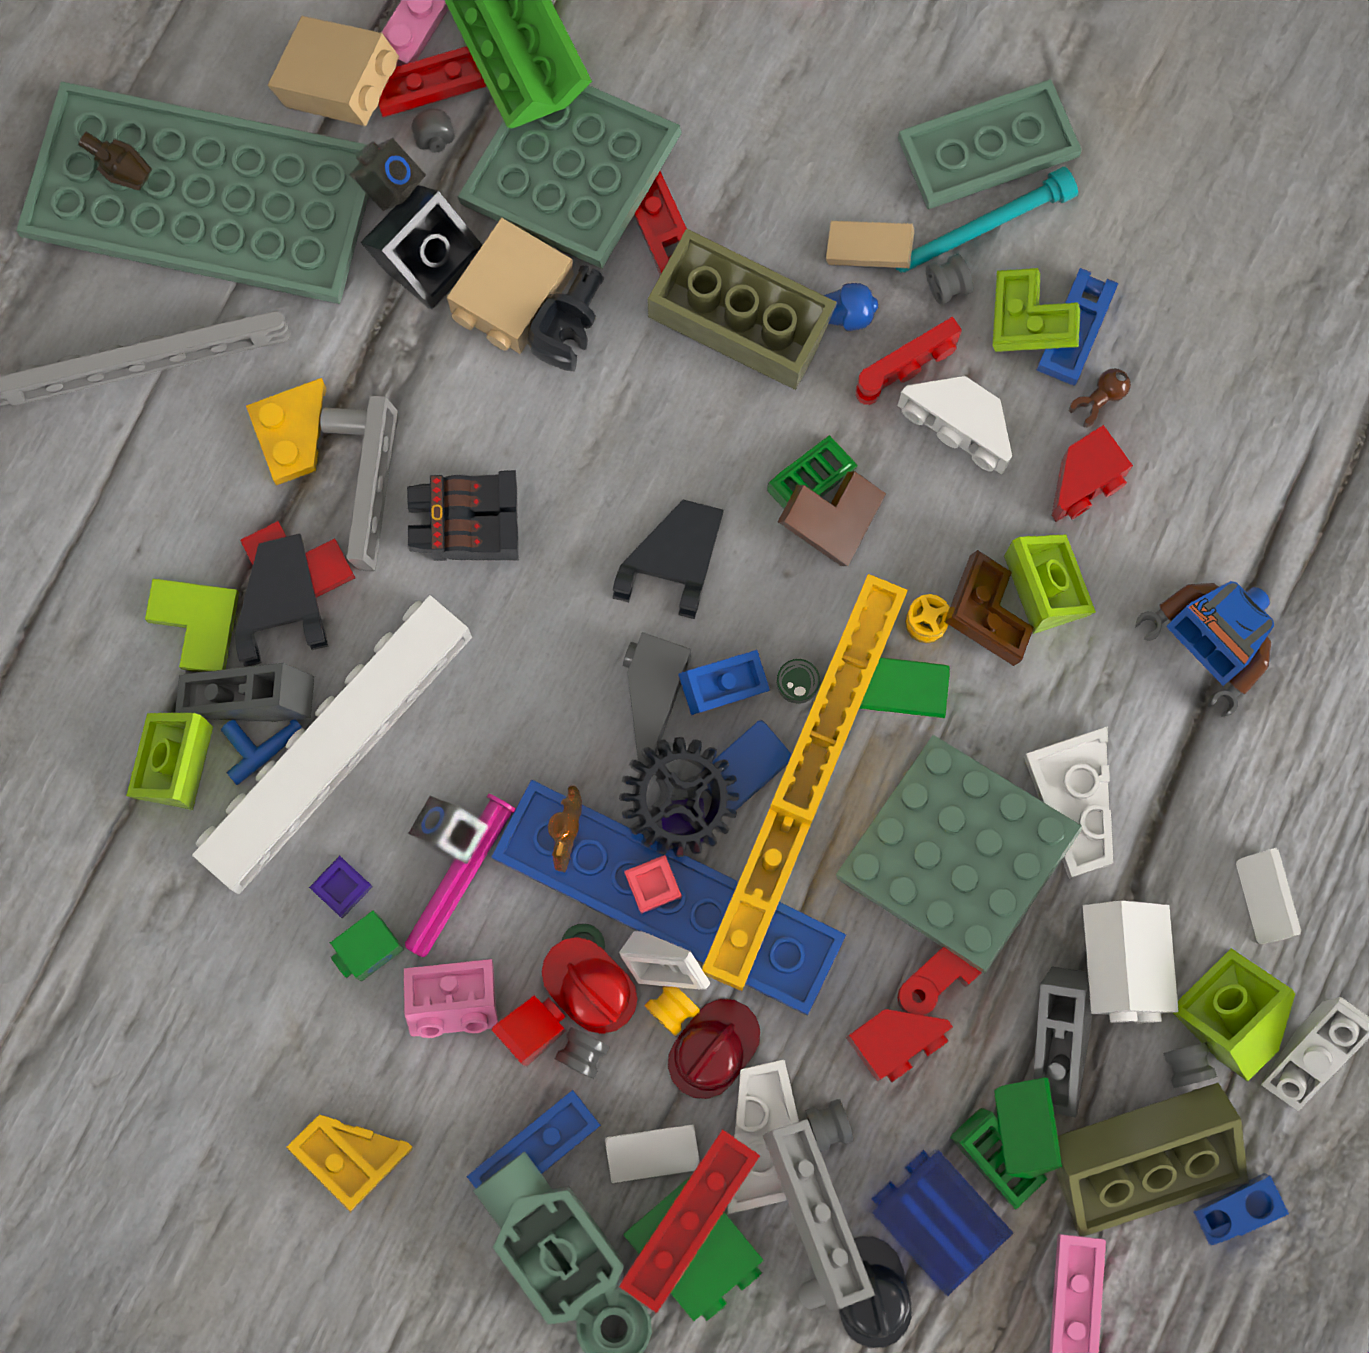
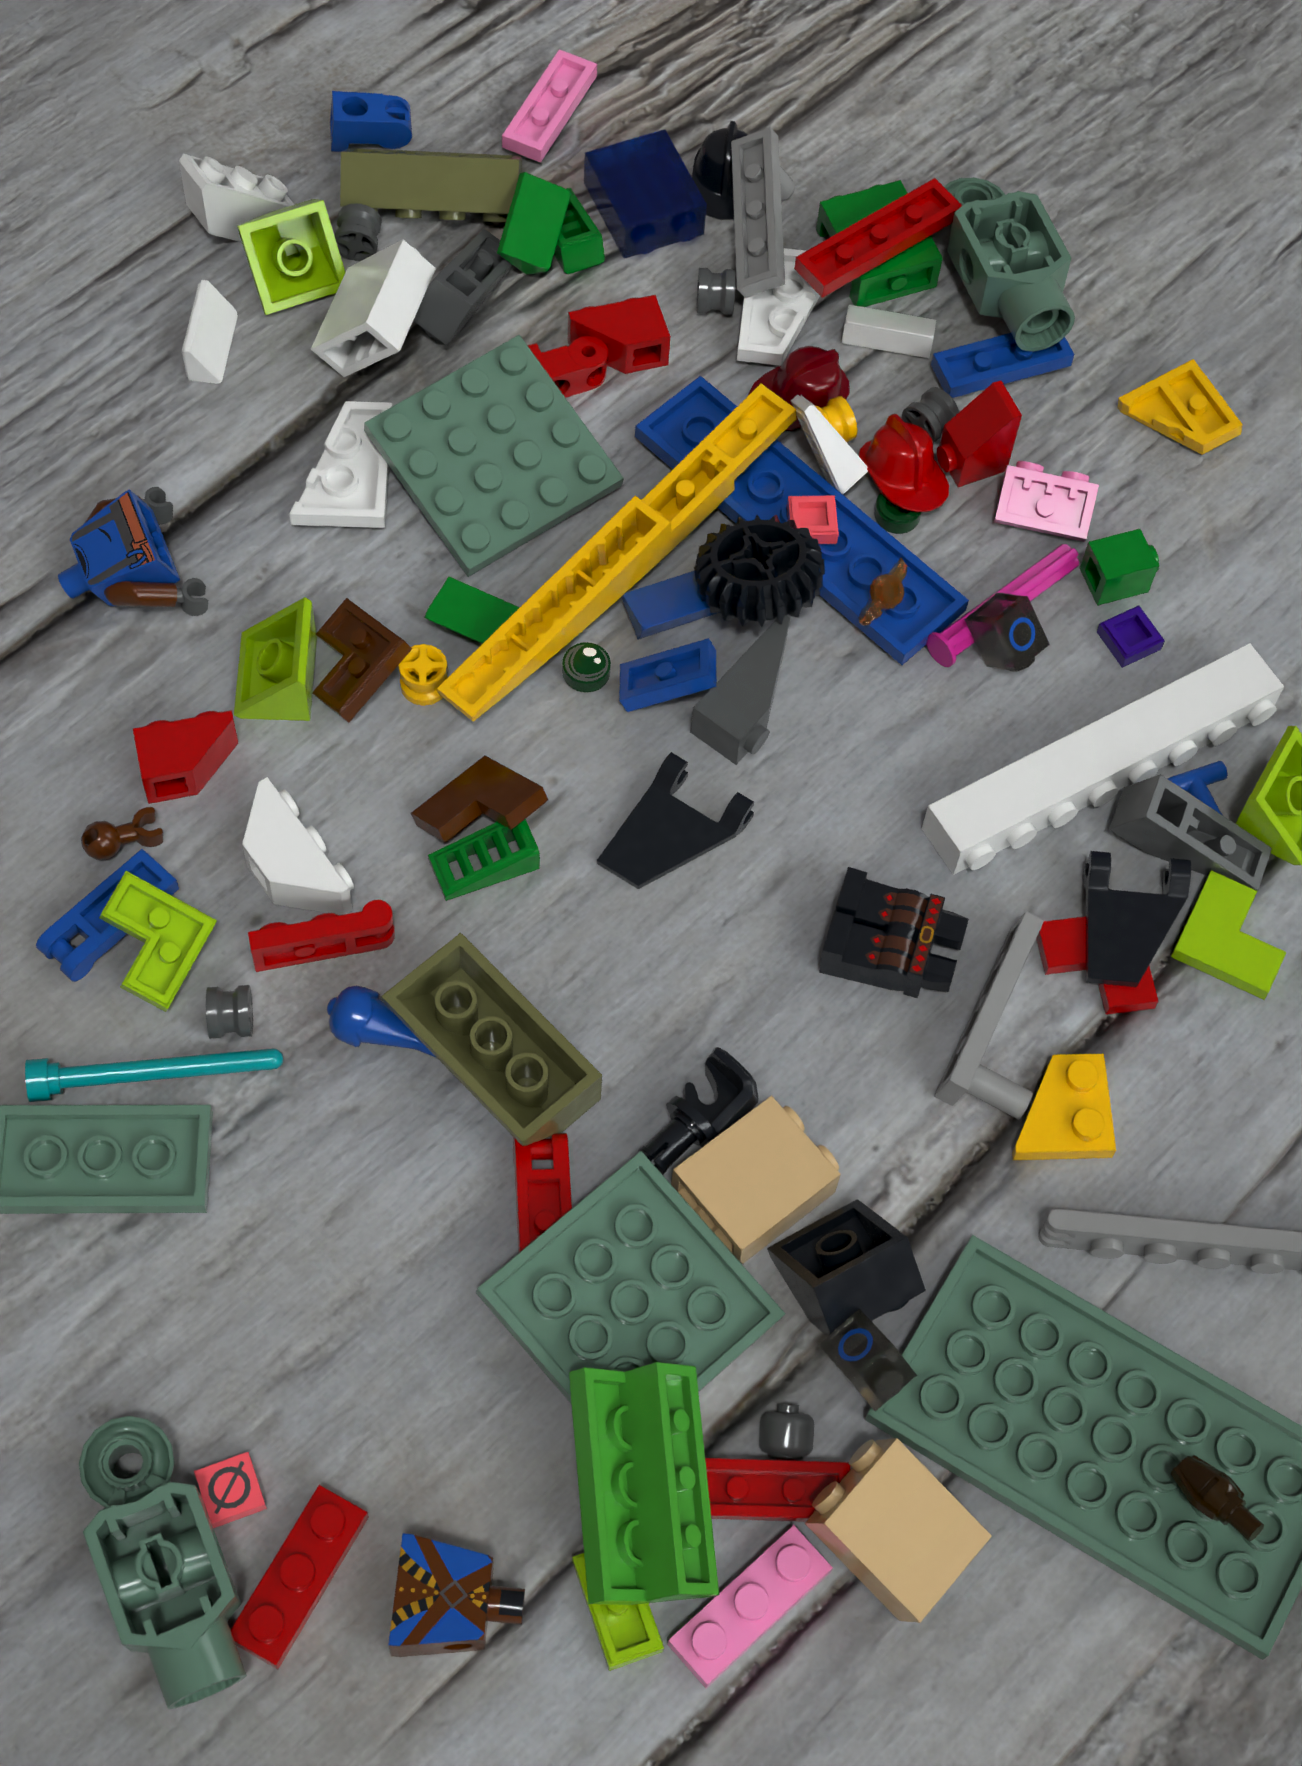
camera: 165 degrees left, 15 degrees down
(870, 244) = (302, 1086): tan tile -> none

